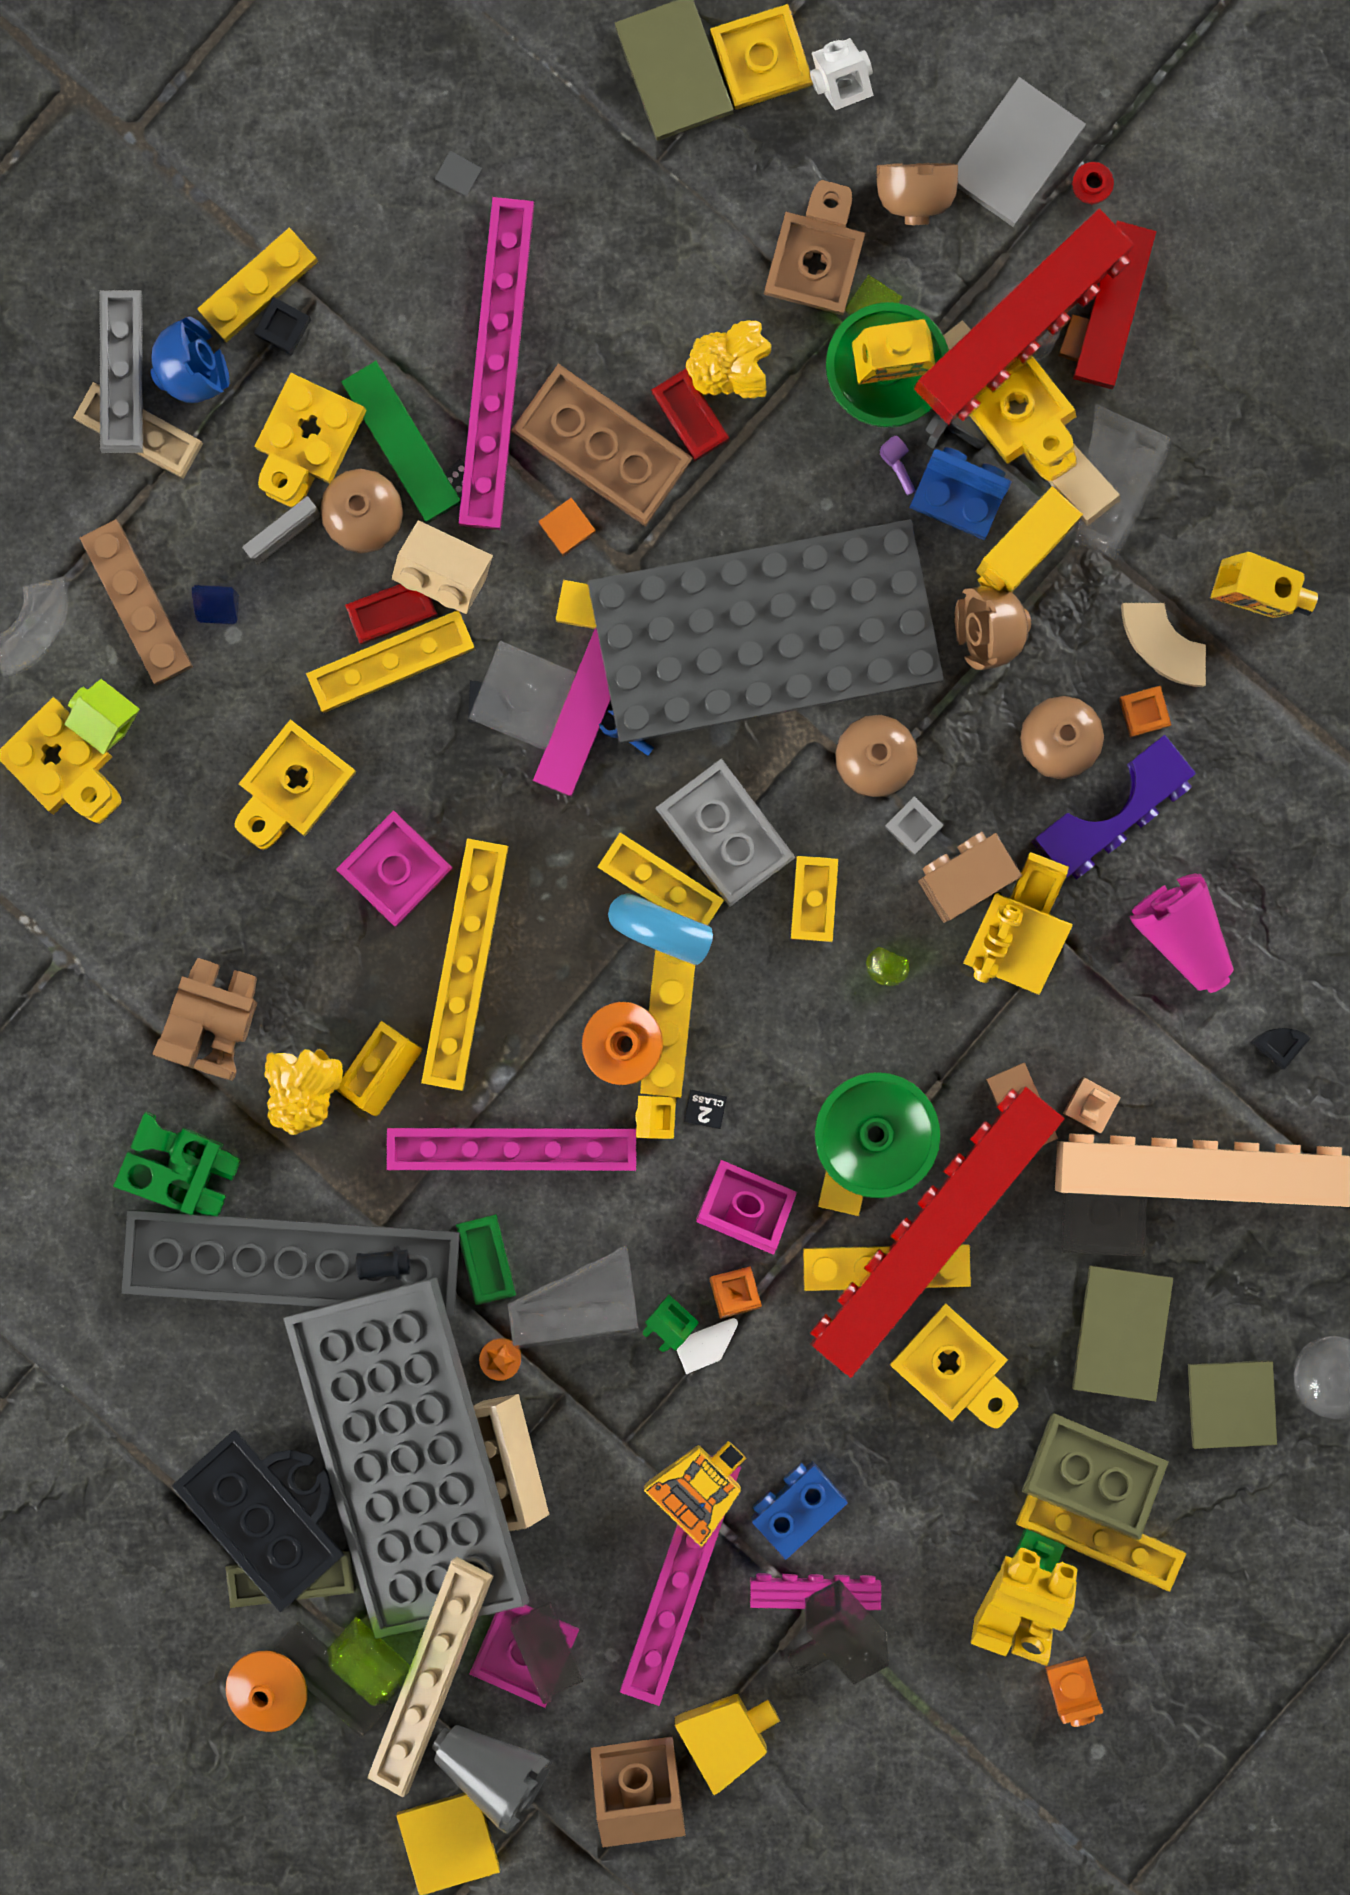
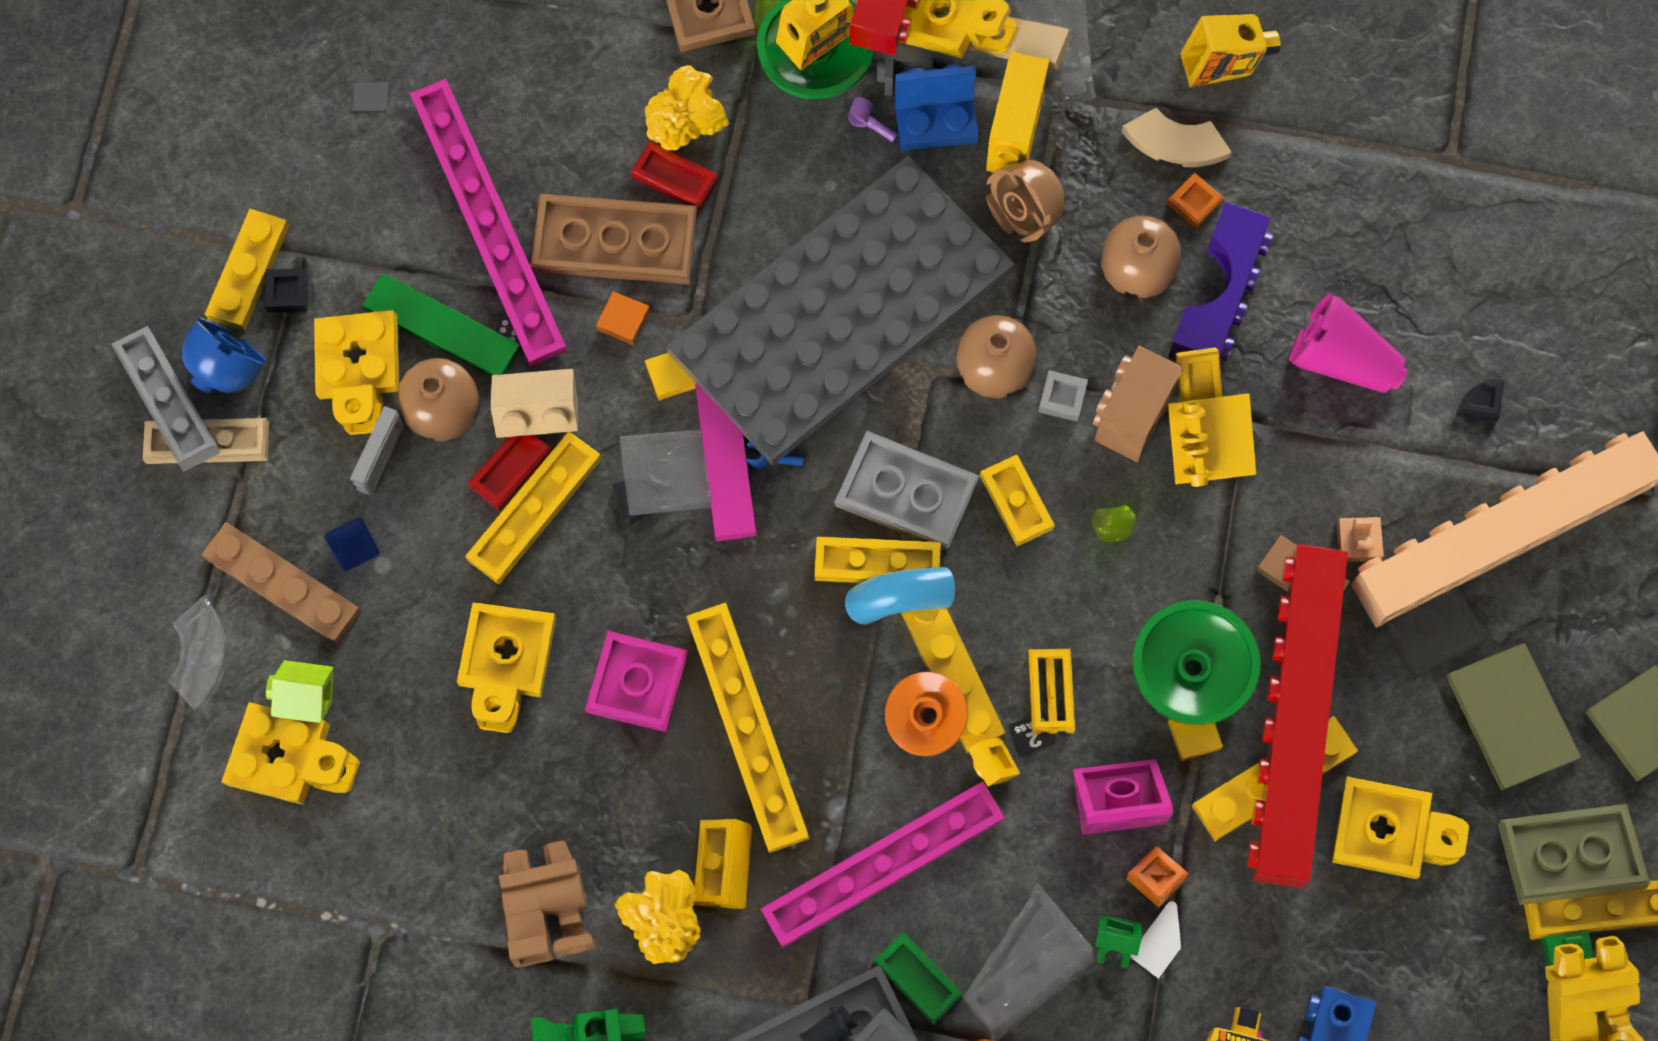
camera: 30 degrees left, 15 degrees down
(726, 1113) = (1052, 725): none -> yellow tile

